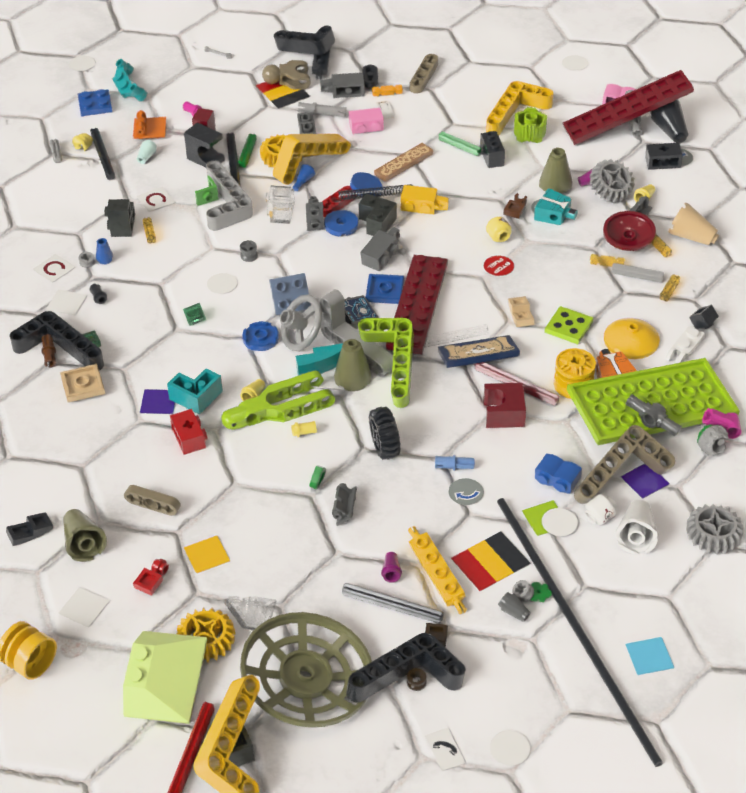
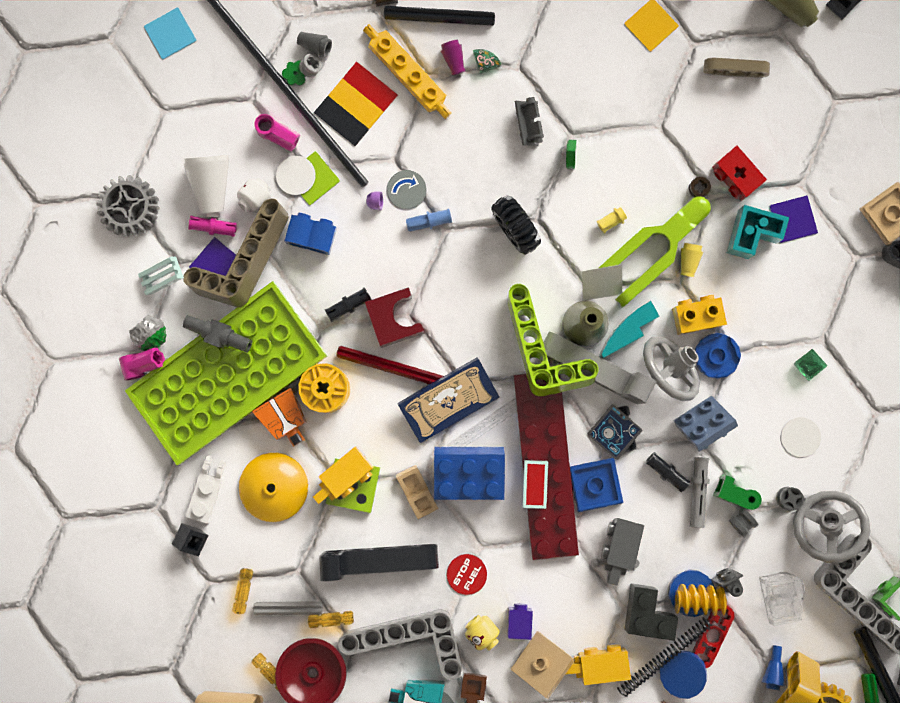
camera: 160 degrees right, 40 degrees up
(220, 437) = (694, 182): none -> dark brown bush
(228, 226) = (832, 532): none -> light grey piece
(263, 356) = (699, 315): none -> yellow brick
(285, 259) = (741, 497): none -> green leg
(288, 245) = (743, 522): none -> dark grey wheel
(314, 263) = (699, 492): none -> light grey pin
(328, 280) = (667, 472): none -> black pin
(339, 211) = (700, 598): none -> yellow piece
(363, 560) = (486, 60): none -> clear green tile
(430, 287) = (535, 484): none -> red tile
(461, 206) = (542, 664): none -> tan plate
(470, 230) = (519, 622): none -> dark purple brick
(477, 305) = (469, 473): none -> blue brick
(493, 488) = (375, 200): none -> medium lavender hinge
(540, 425) = (348, 304): none -> black pin
(554, 241) = (407, 635): none -> light grey beam
(564, 280) = (338, 563): none -> black beam
(573, 551) = (278, 132): none -> dark pink piece
(574, 323) = (343, 475): none -> yellow hinge
(630, 496) = (212, 226): none -> dark pink pin
(694, 473) = (147, 281): none -> light aqua tile

